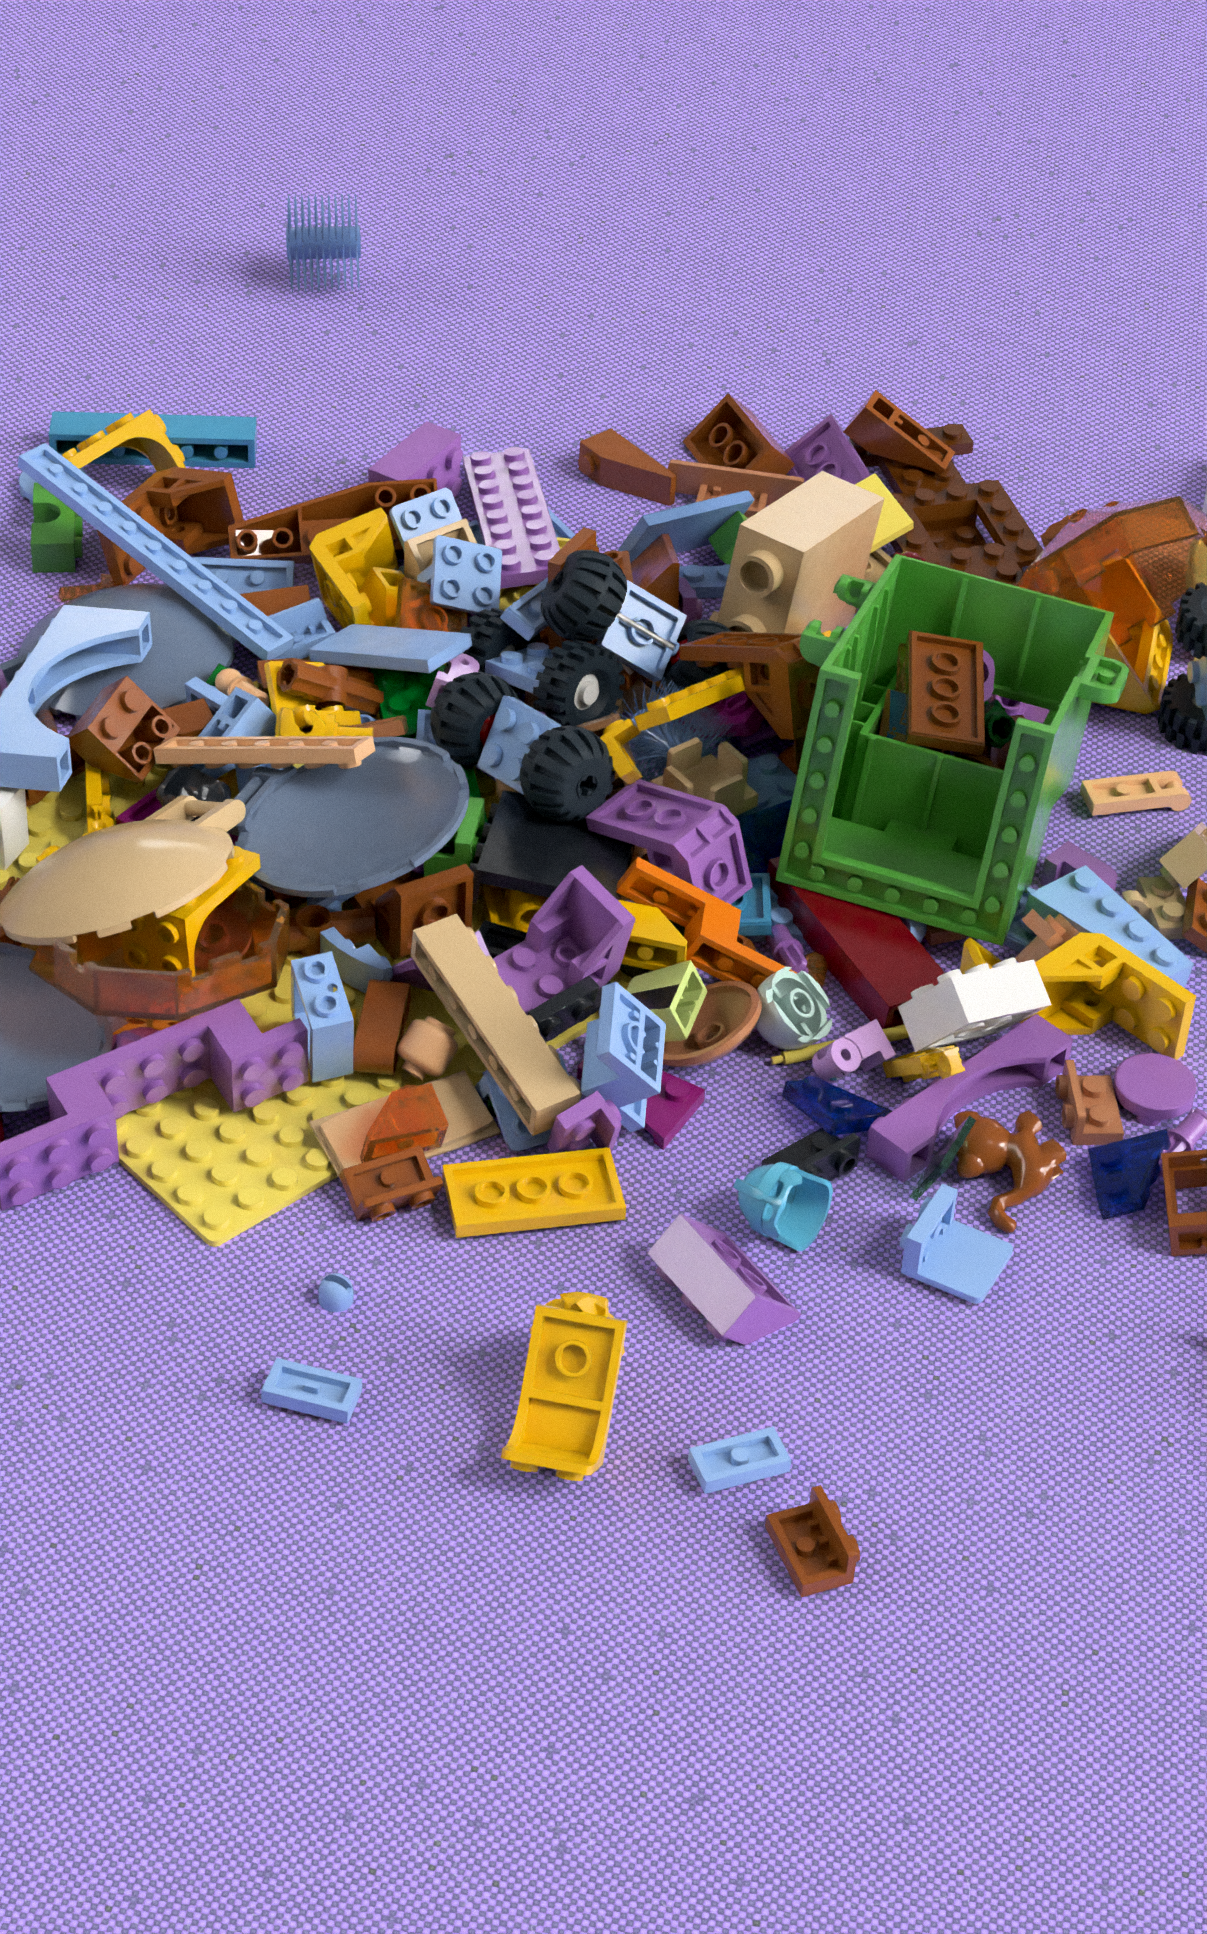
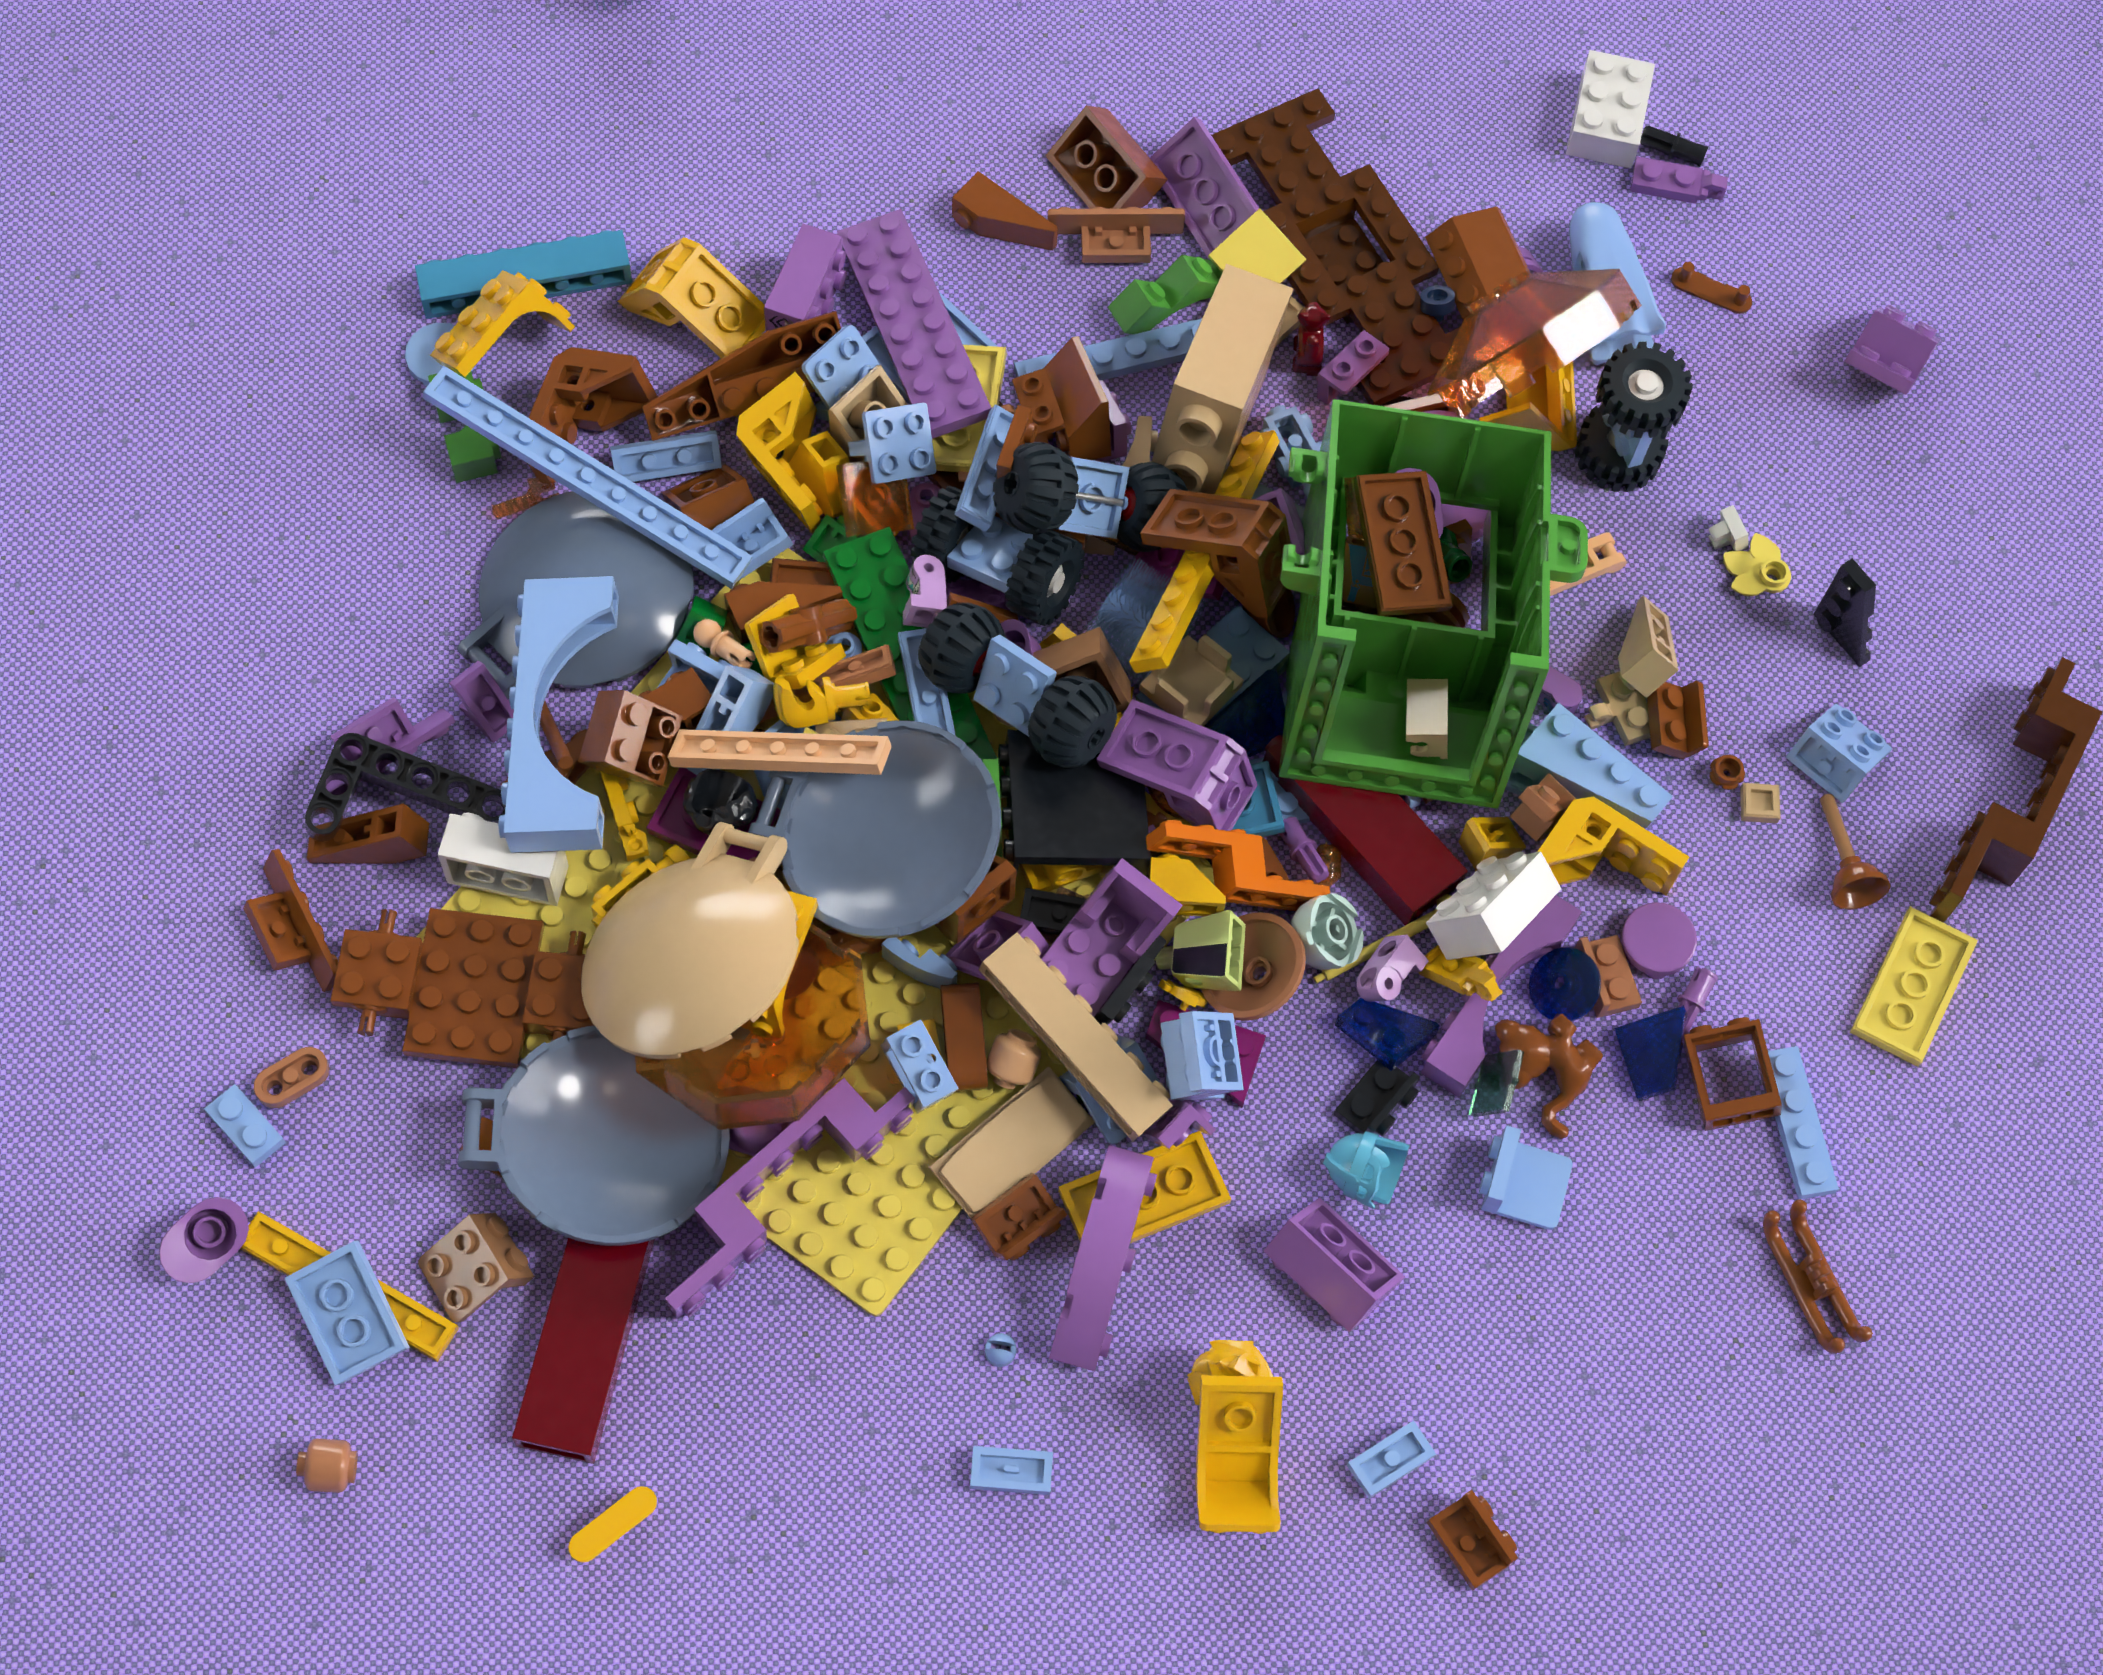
camera: 15 degrees left, 25 degrees up
(301, 457) = (695, 288): none -> yellow bracket
(390, 648) = (852, 559): light blue tile -> none
(406, 1120) = (1017, 1155): clear orange slope -> none
(460, 1215) = (1102, 1258): none -> medium lavender brick
(615, 737) = (1123, 698): yellow bracket -> none
(687, 524) = (1085, 311): medium blue tile -> none
(893, 434) = (1265, 137): dark orange slope -> none
(947, 842) = (1427, 717): none -> tan hinge
(1047, 1093) = (1580, 987): none -> clear blue dish

